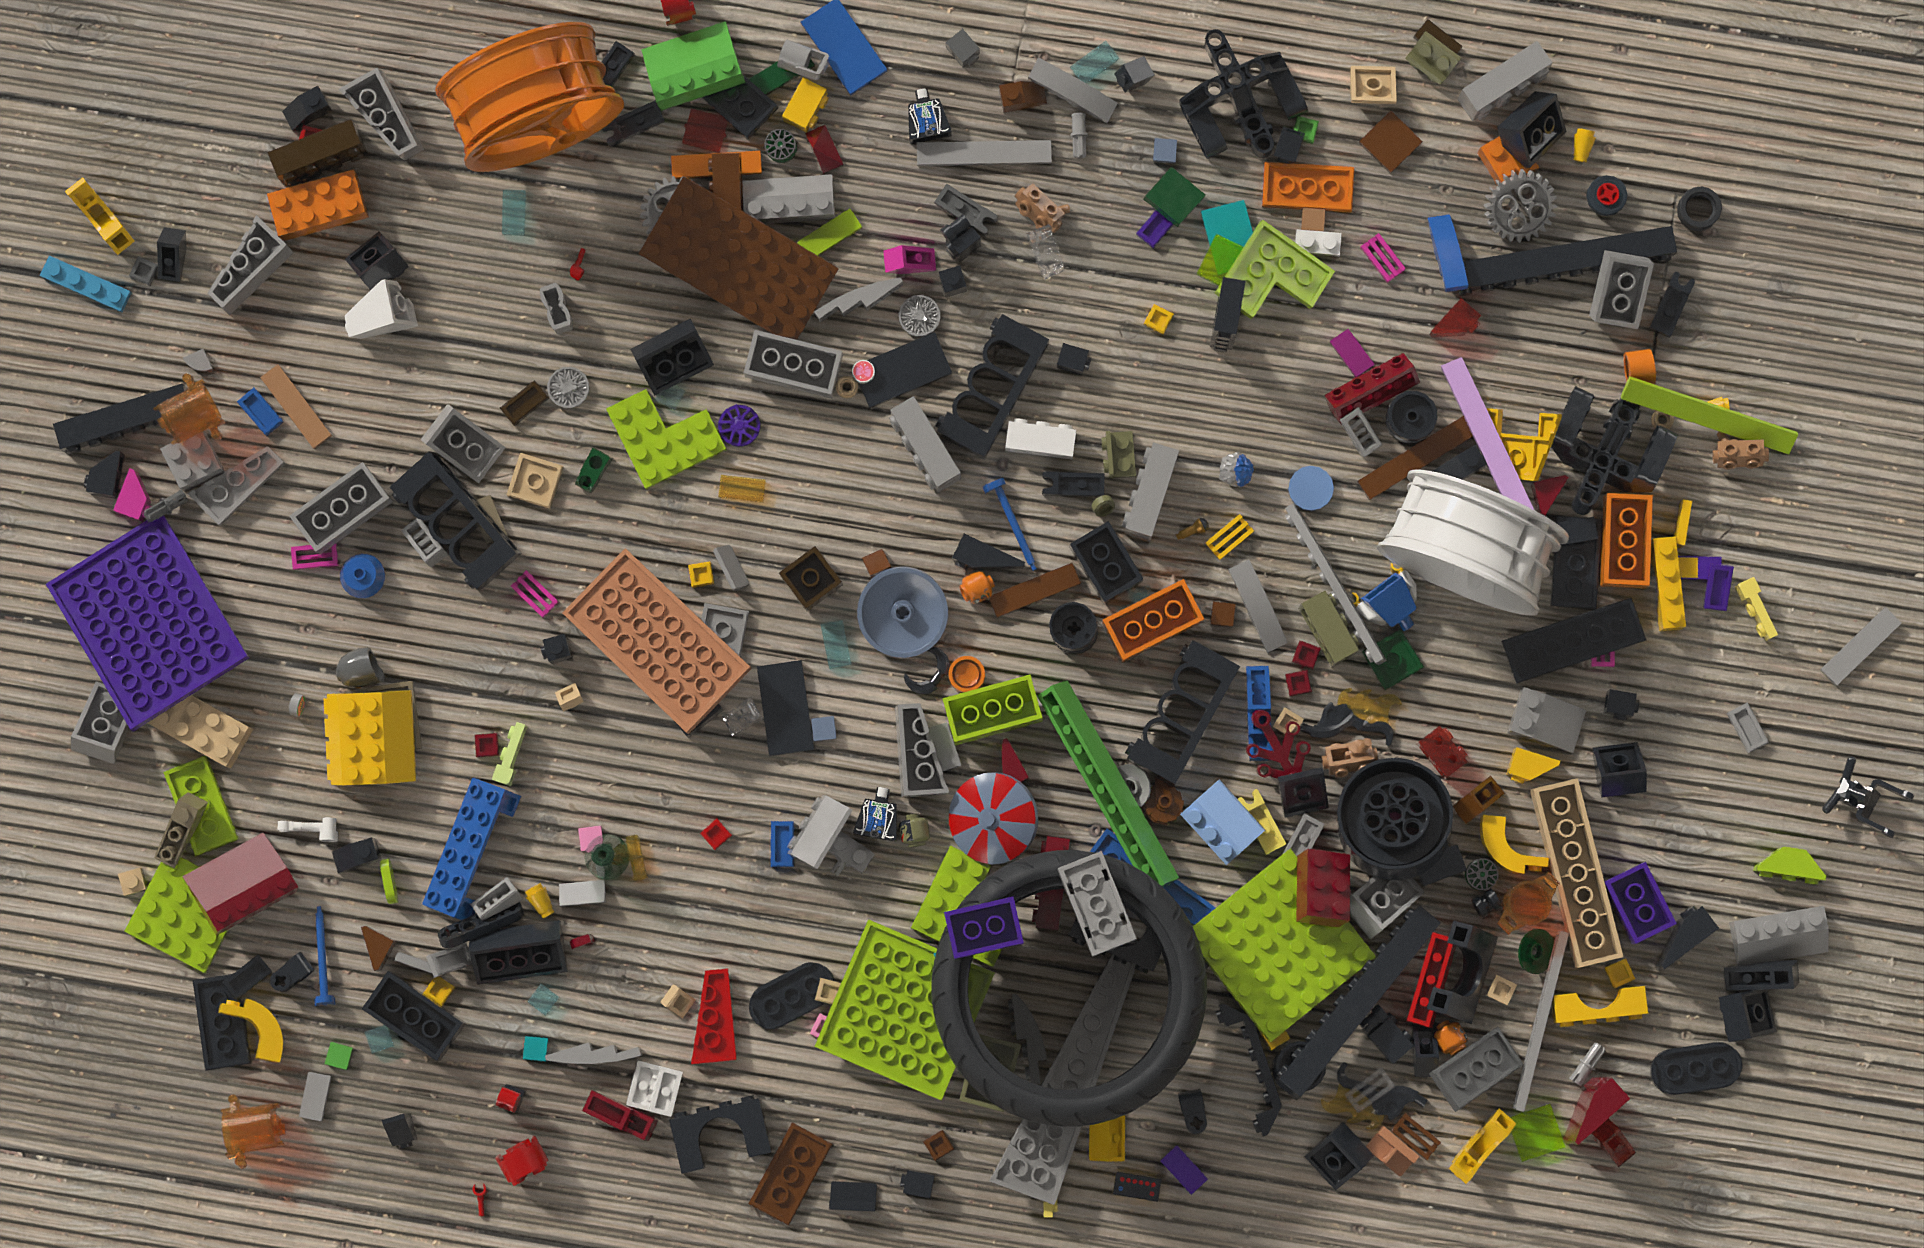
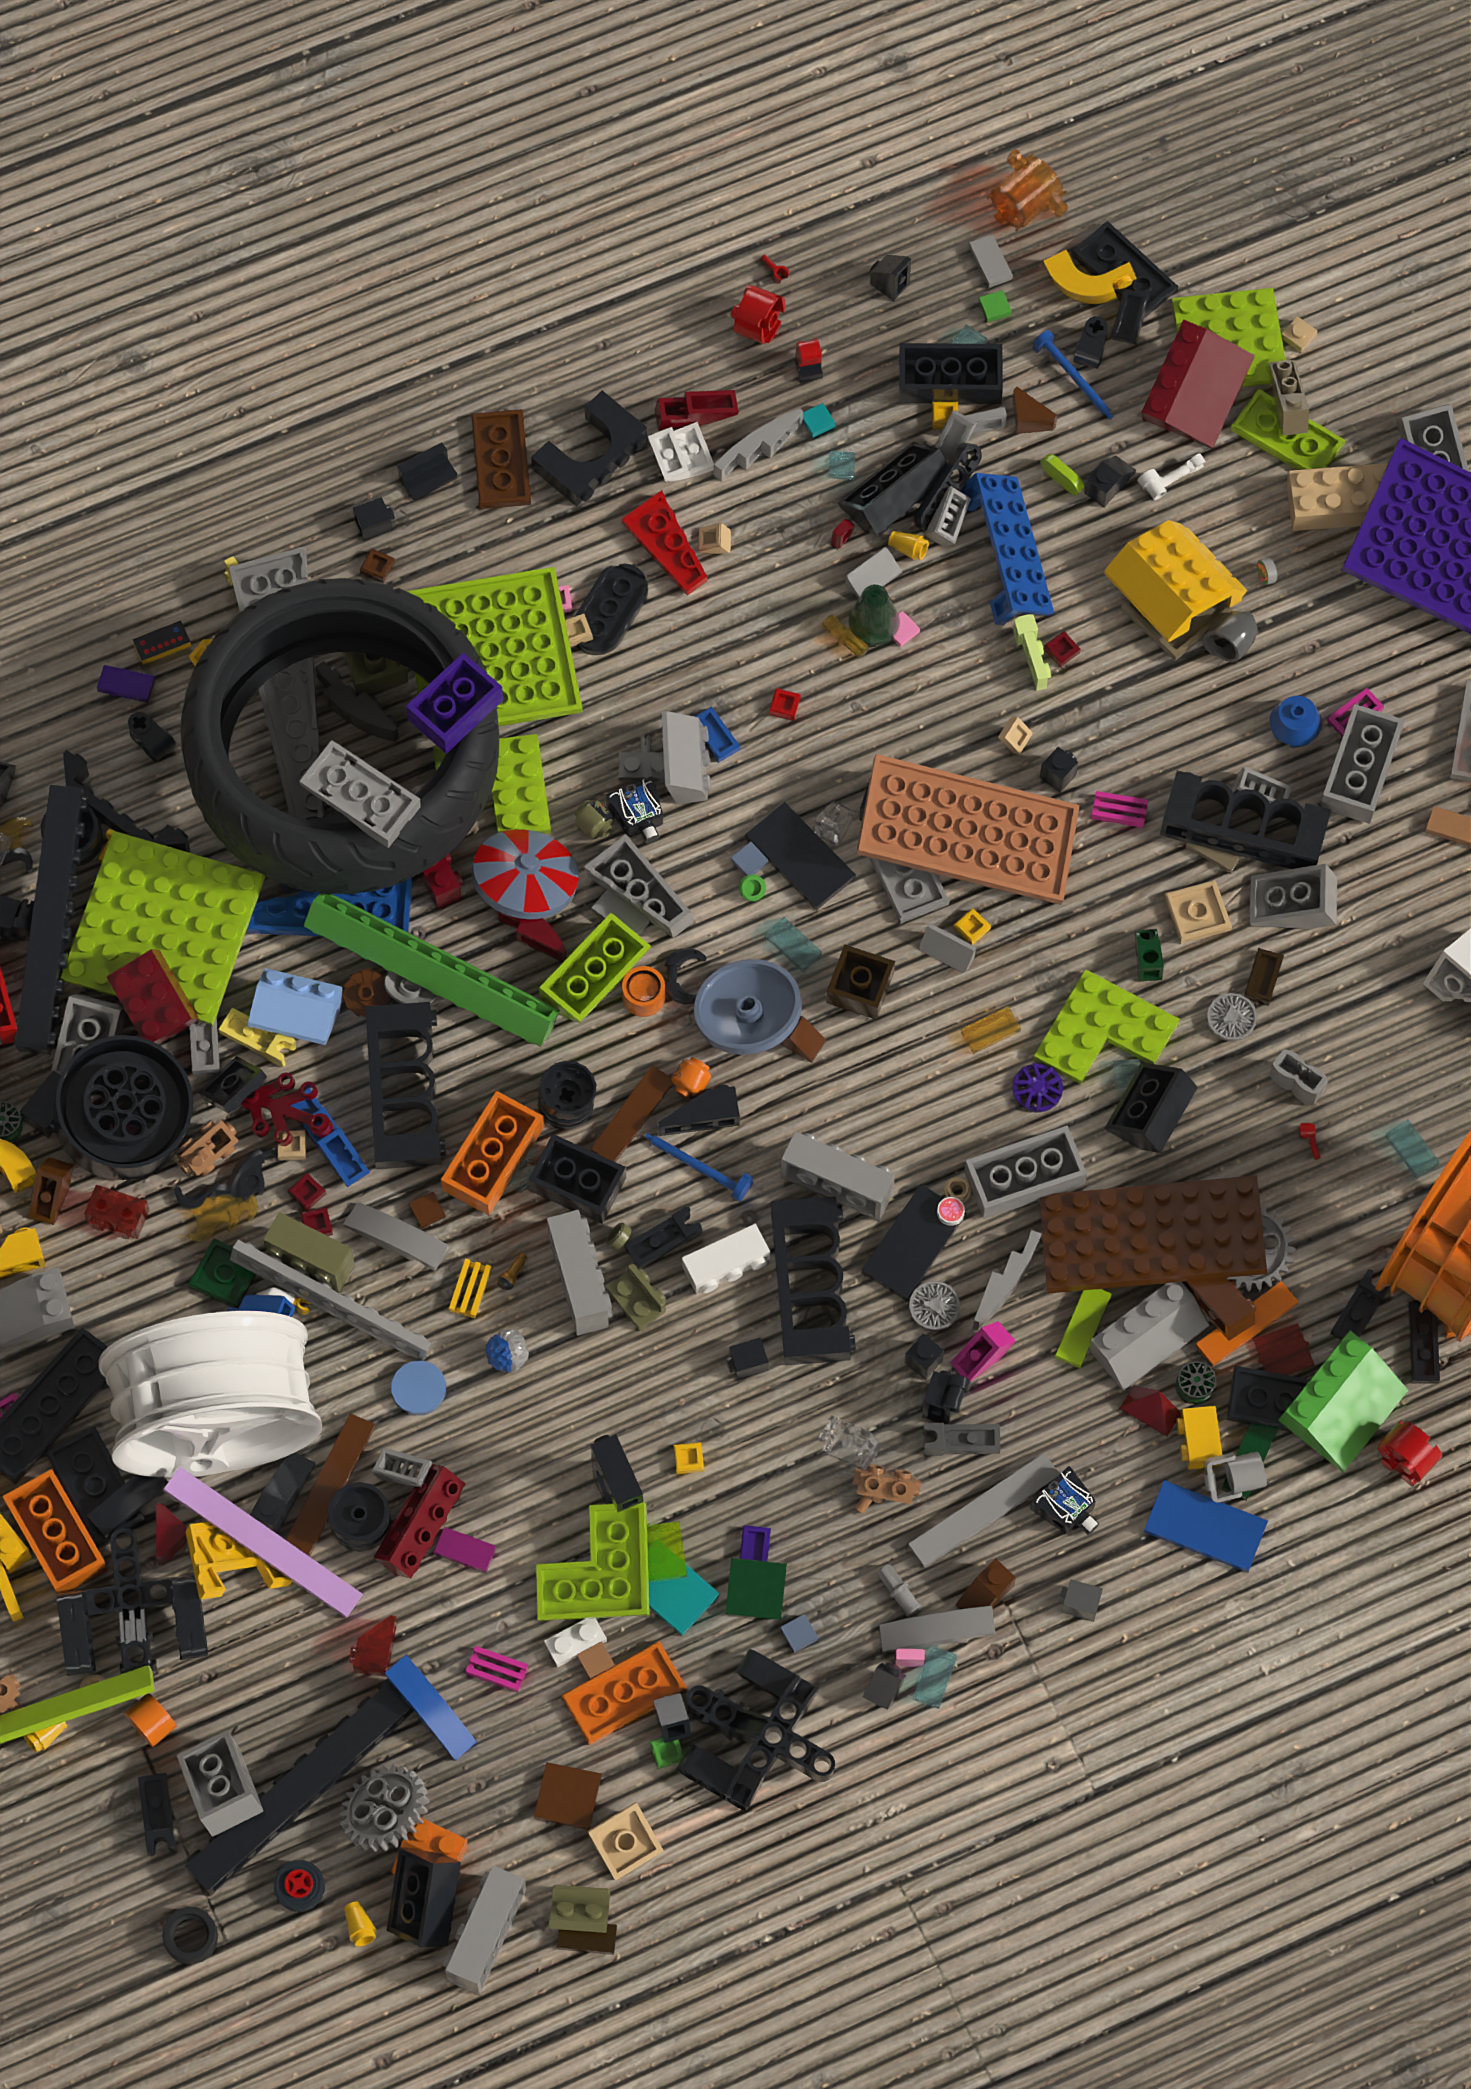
camera: 140 degrees right, 15 degrees down
(836, 705) = (752, 887): none -> bright green tile
(1103, 84) = (910, 1657): none -> bright pink tile

